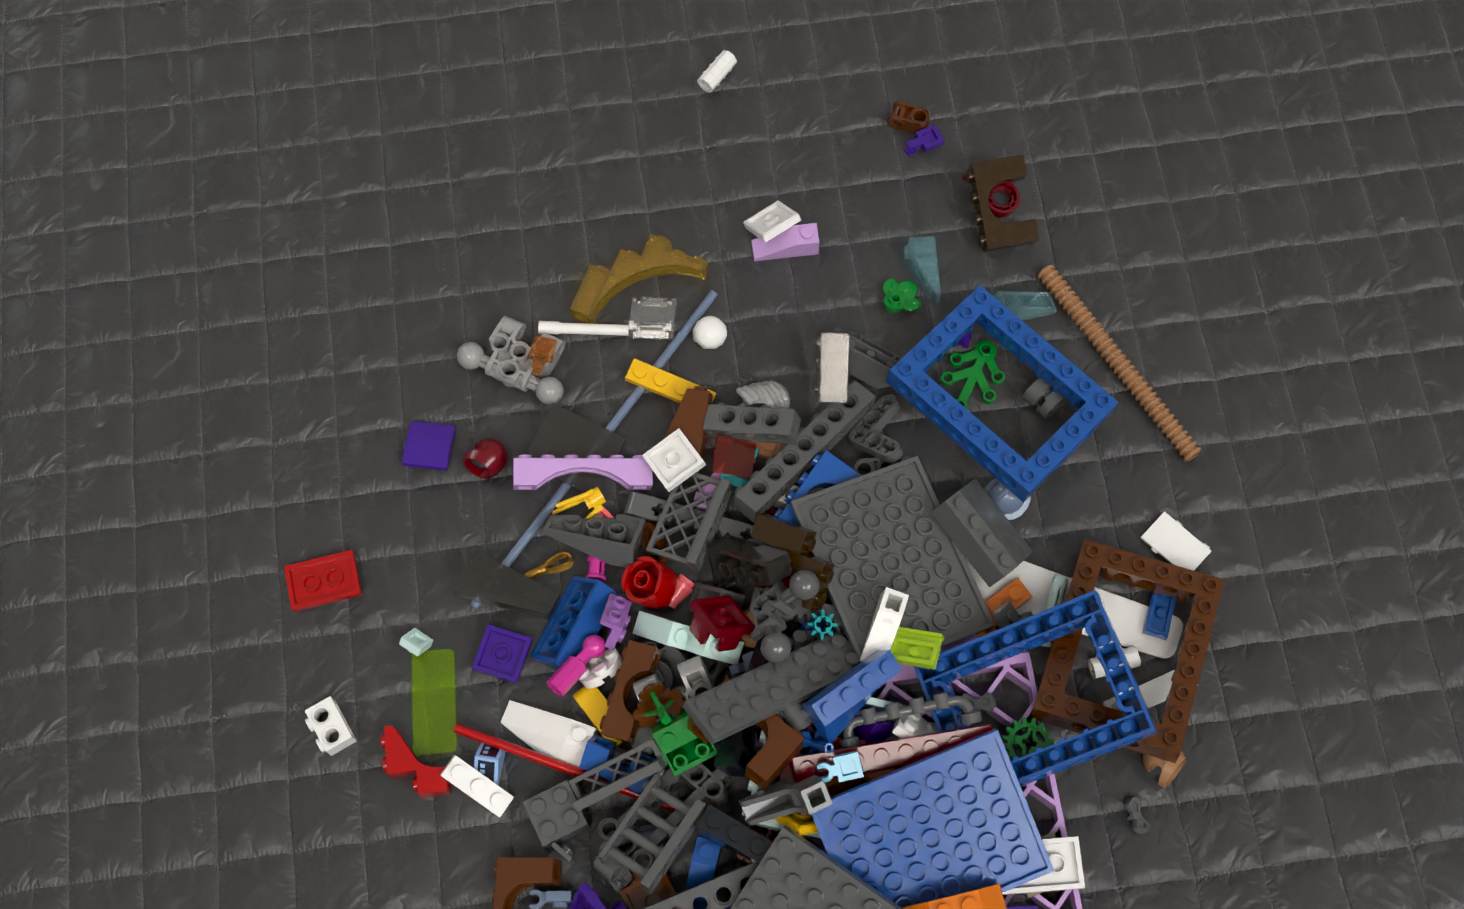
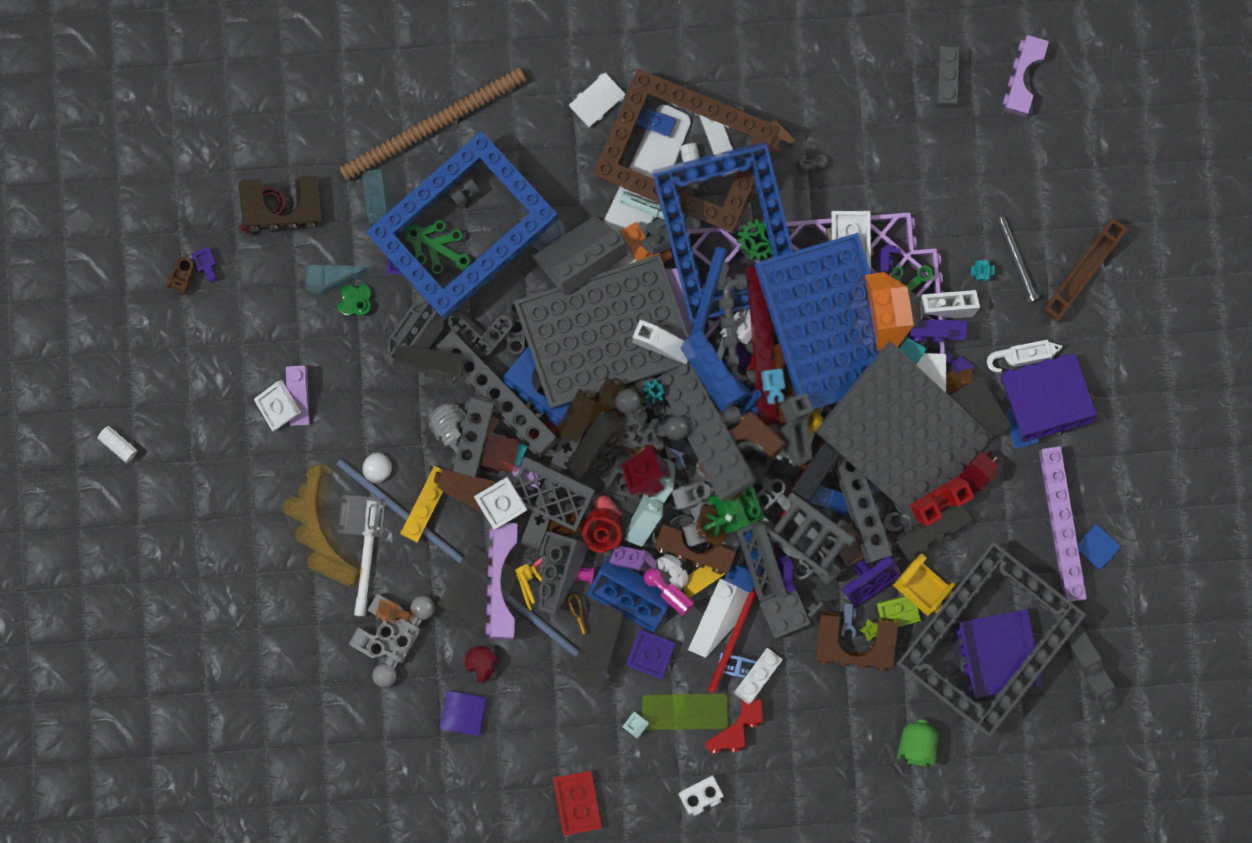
camera: 85 degrees left, 15 degrees up
(608, 808) = (785, 567): none -> dark purple plate
(917, 647) = (680, 317): lime plate -> none
(955, 681) = (709, 290): none -> blue axle

